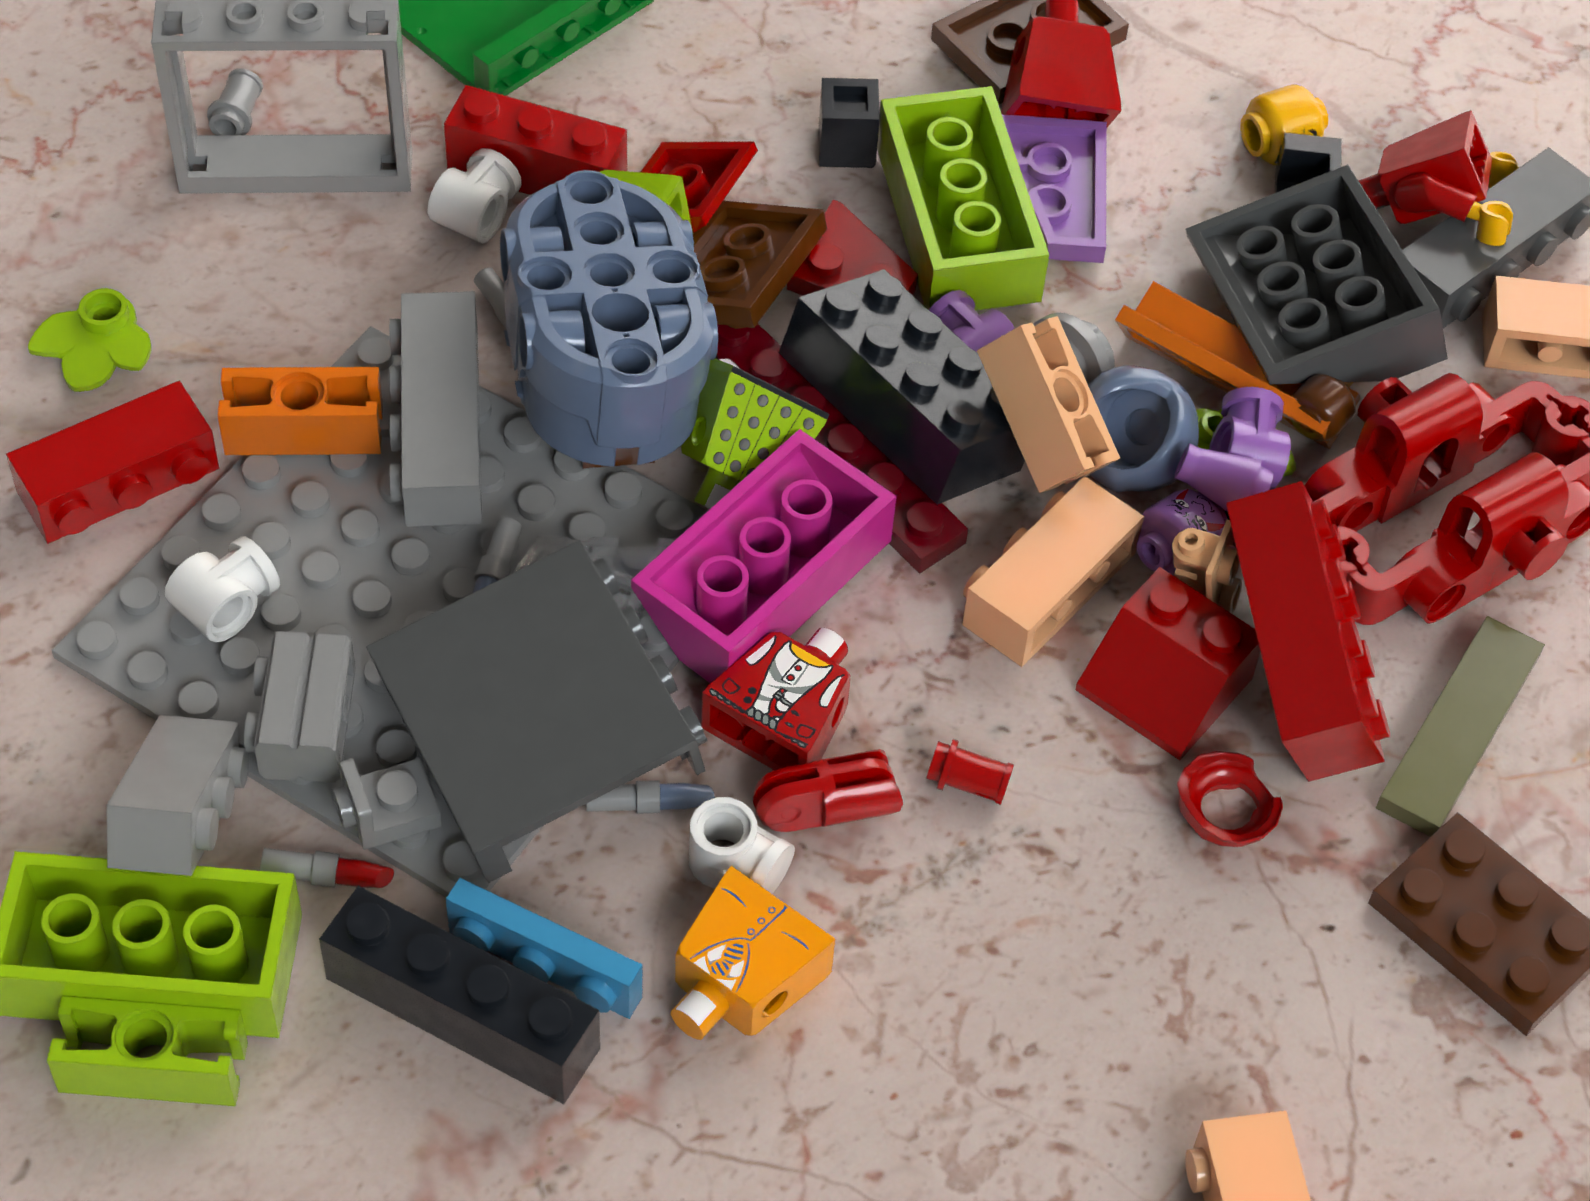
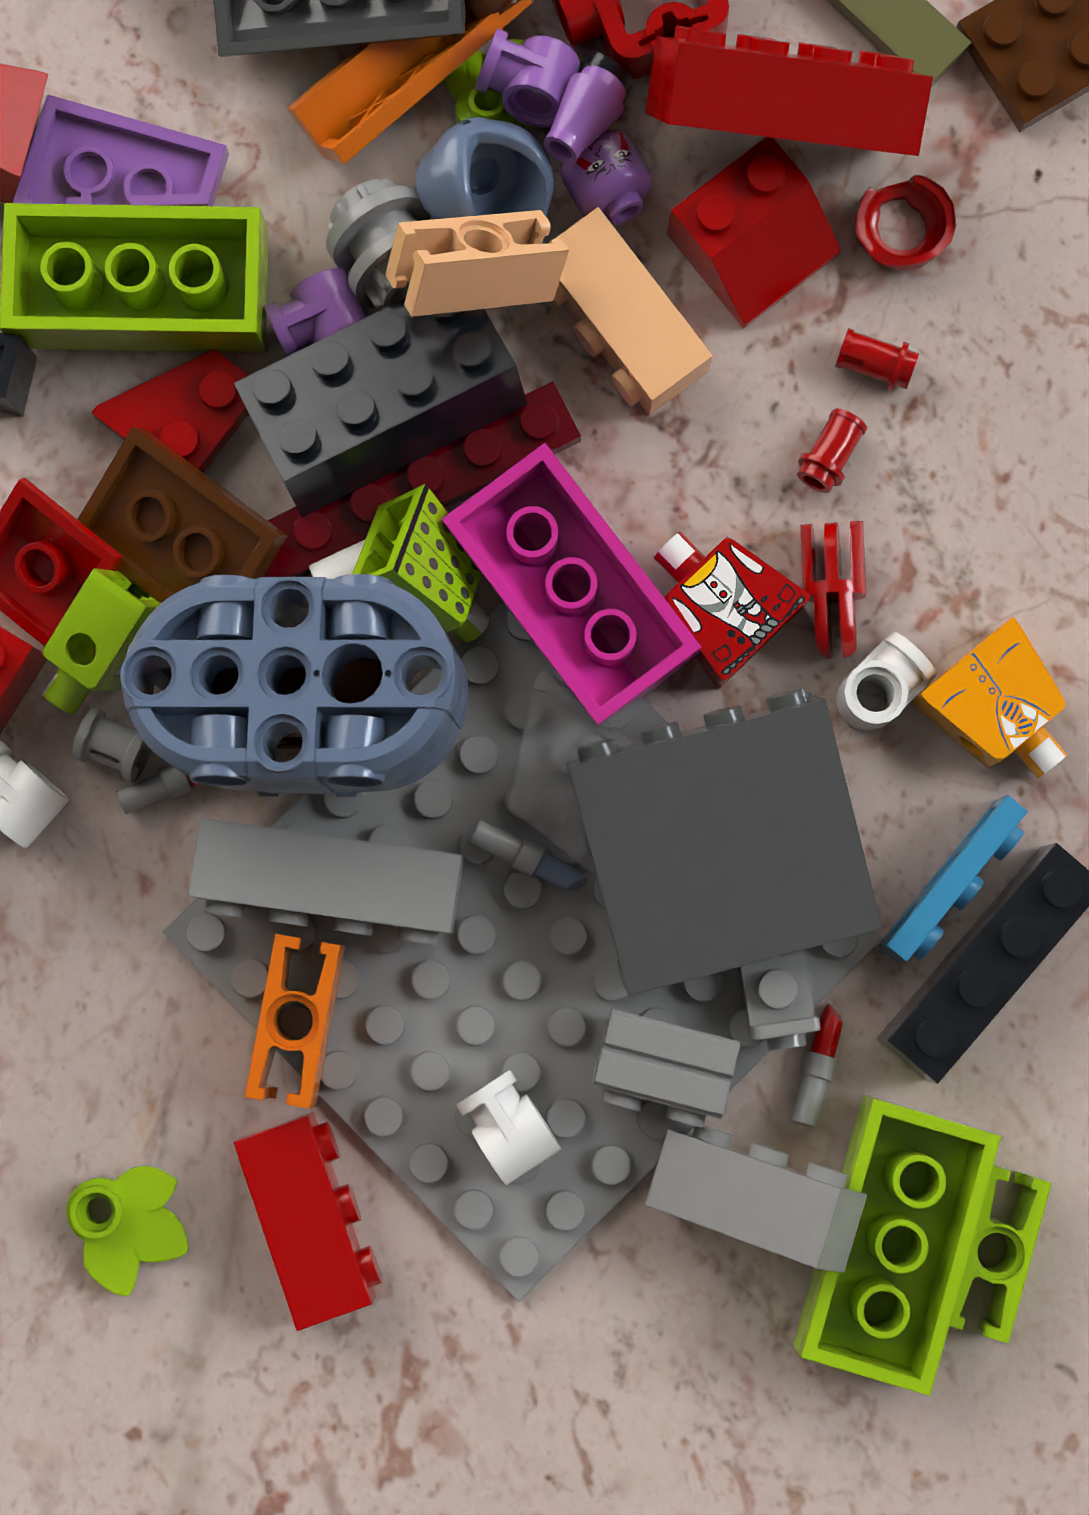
camera: 75 degrees left, 30 degrees up
(1077, 812) = (877, 359): none -> red pin
(1209, 564) = (686, 160): light nougat hinge -> none

